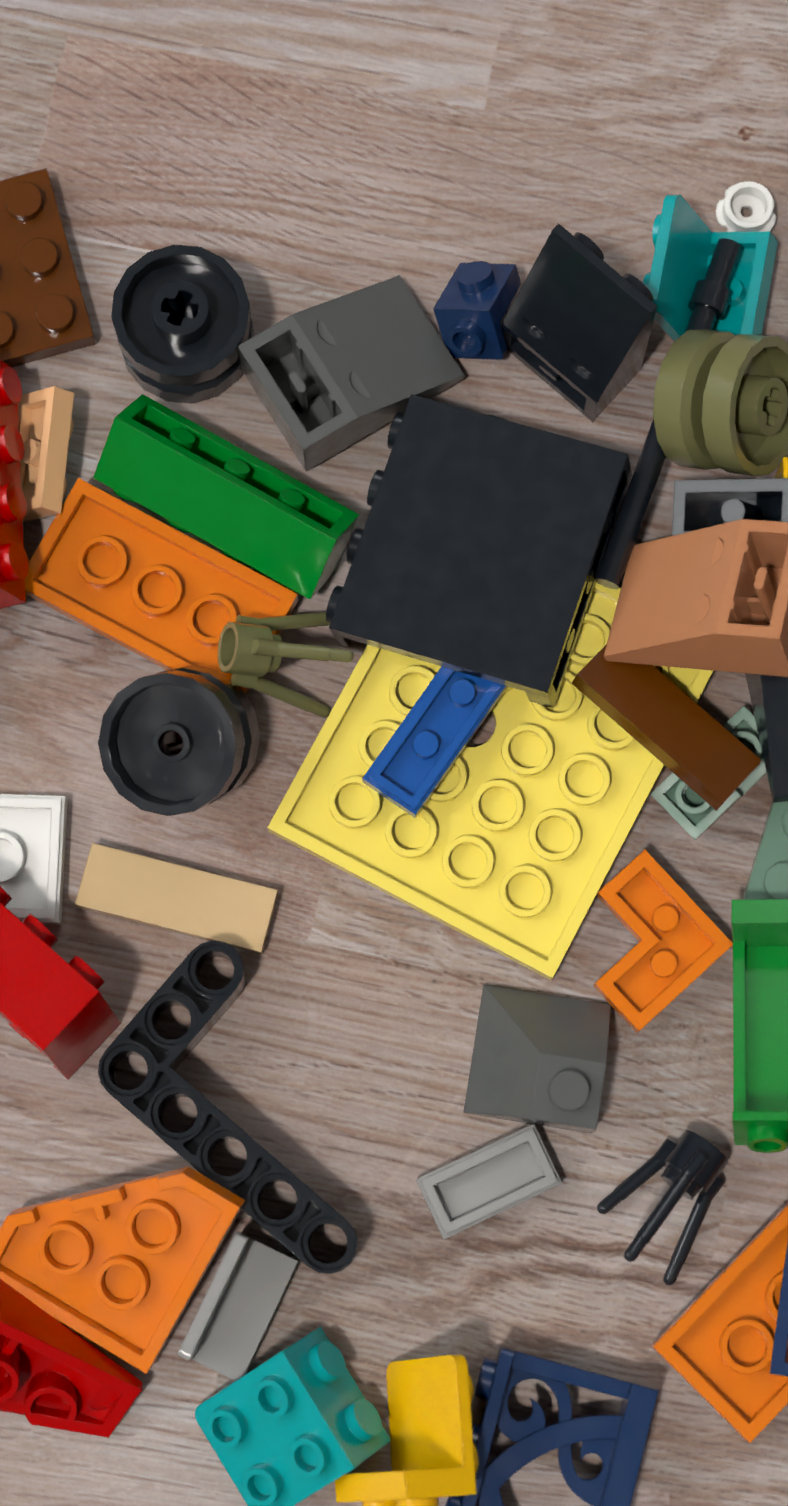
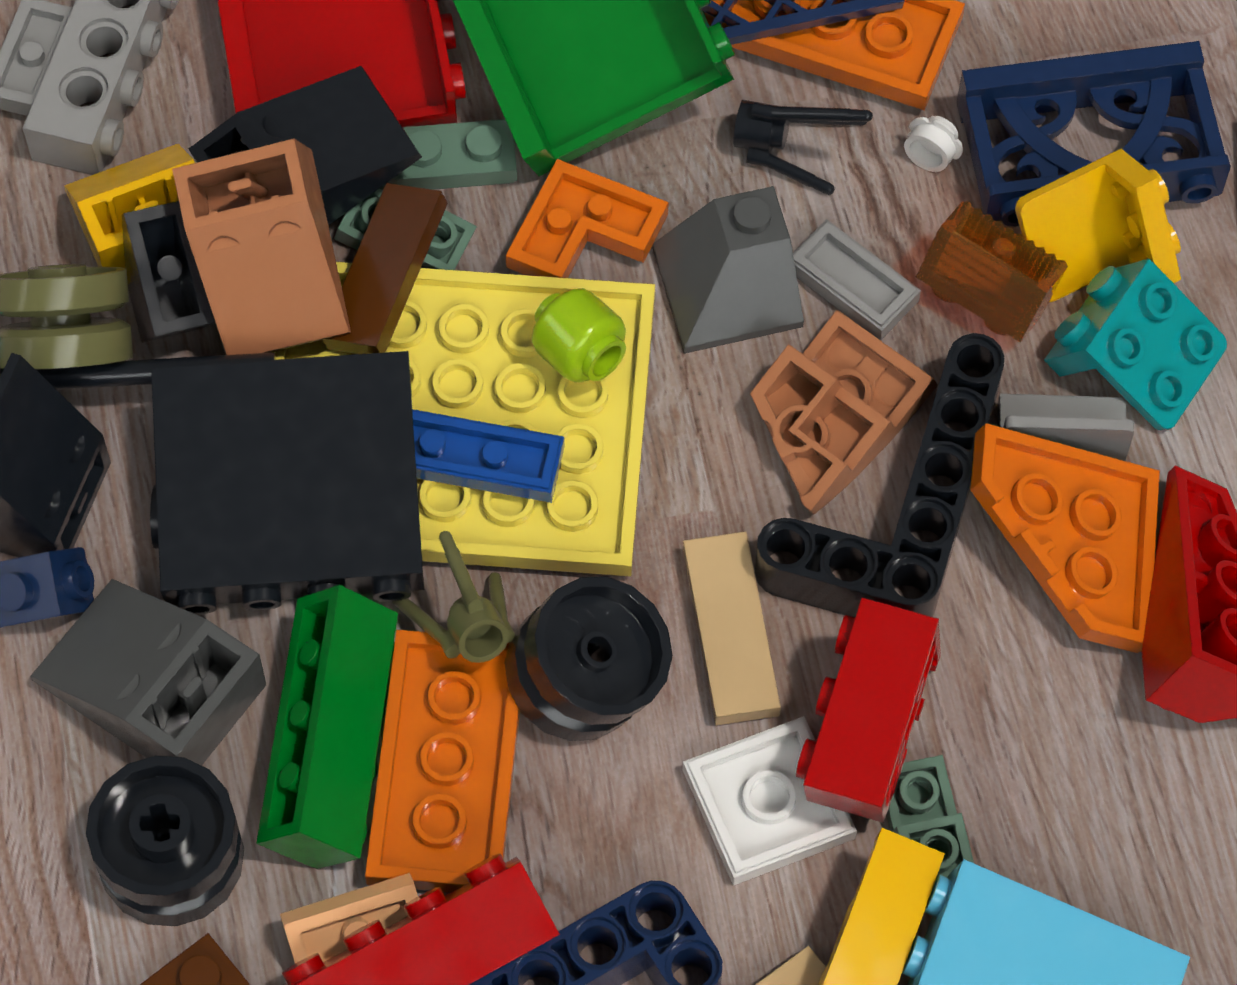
camera: 115 degrees left, 15 degrees down
(357, 1100) = (837, 406): none -> nougat slope
(419, 1310) = (991, 271): none -> clear orange brick
(509, 868) = (579, 335): none -> lime head
(605, 1333) = (932, 143): none -> white plate

